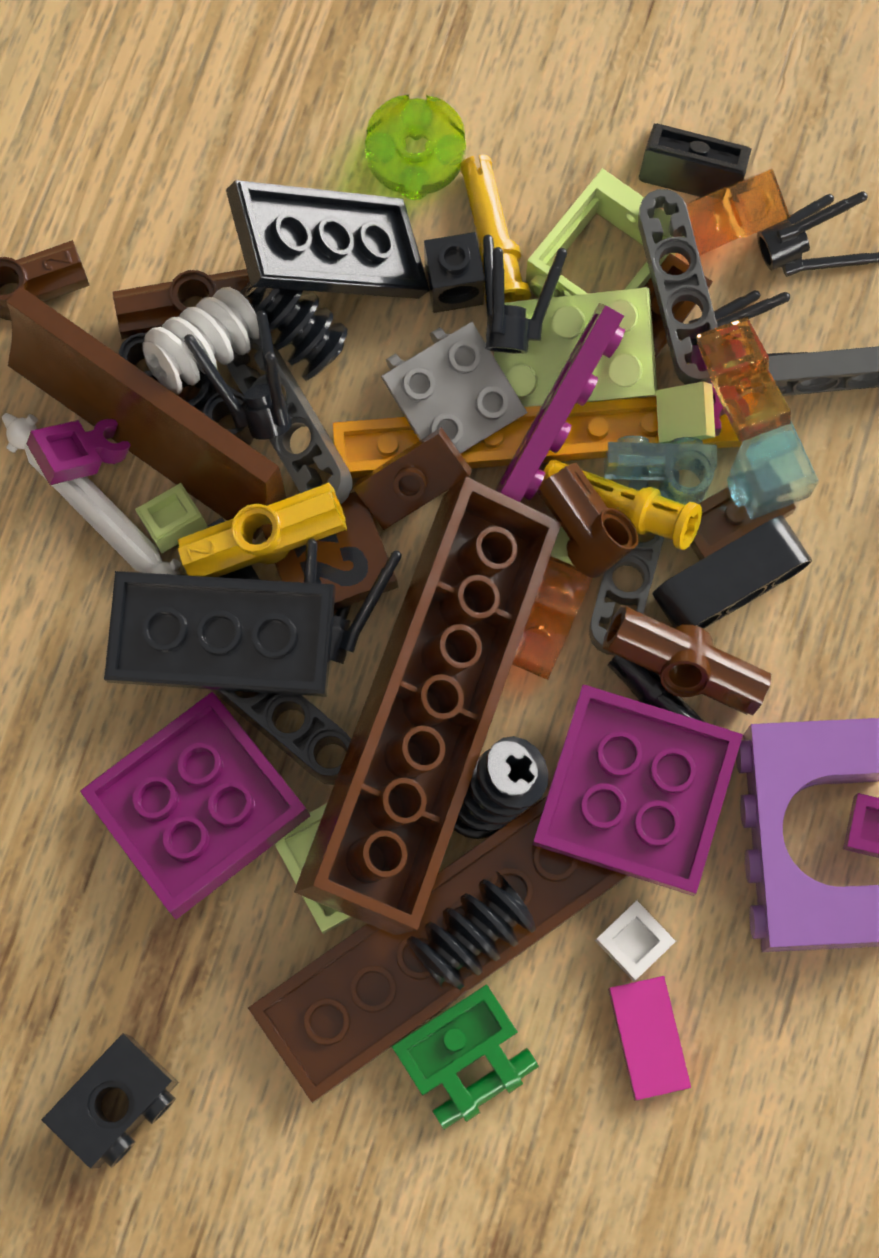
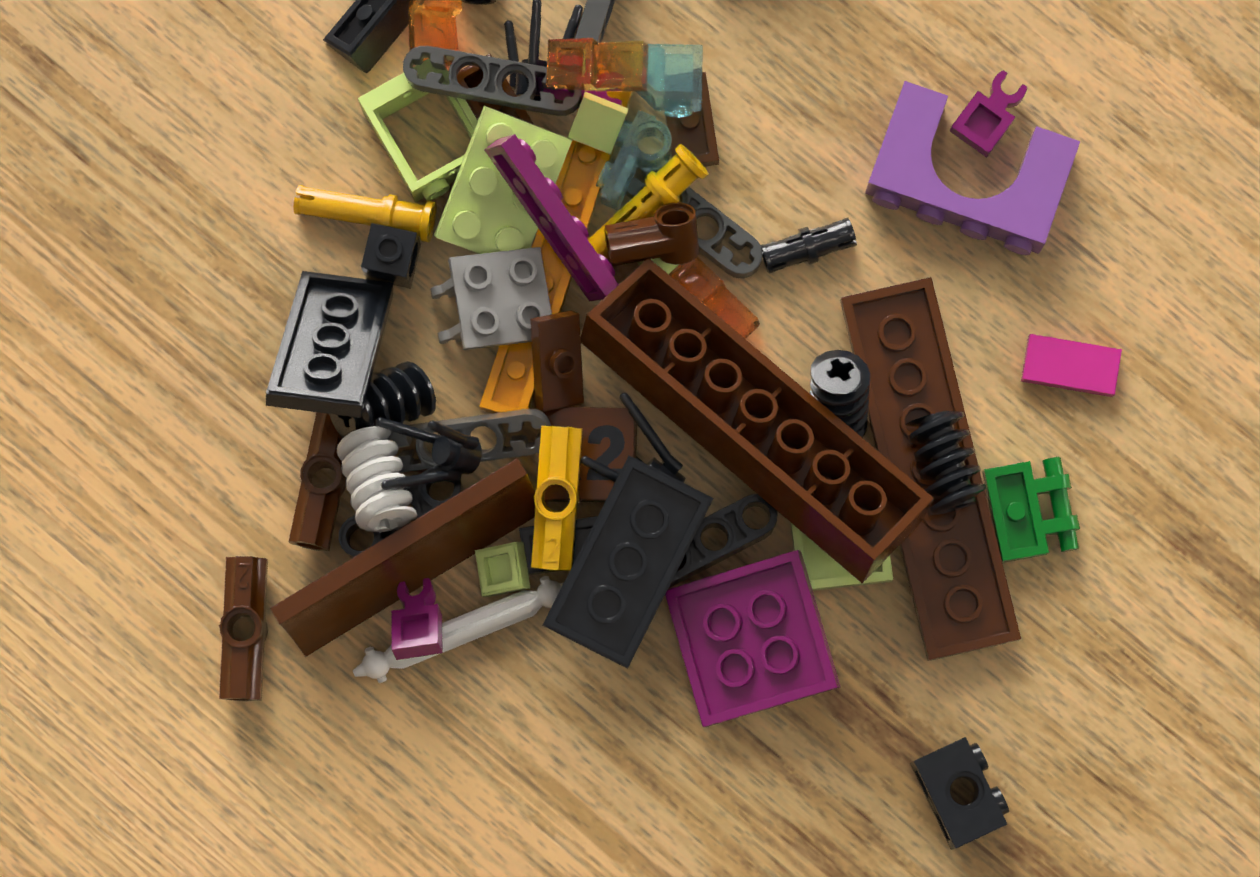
camera: 65 degrees left, 5 degrees up
(415, 173) = (282, 255): clear neon green plate -> none
(507, 324) = (467, 231): black plant -> none
(635, 940) = (995, 344): white plate -> none
(638, 790) = (884, 290): magenta plate -> none
(687, 660) = (796, 210): reddish brown piece -> none
(733, 575) = (740, 146): black beam -> none

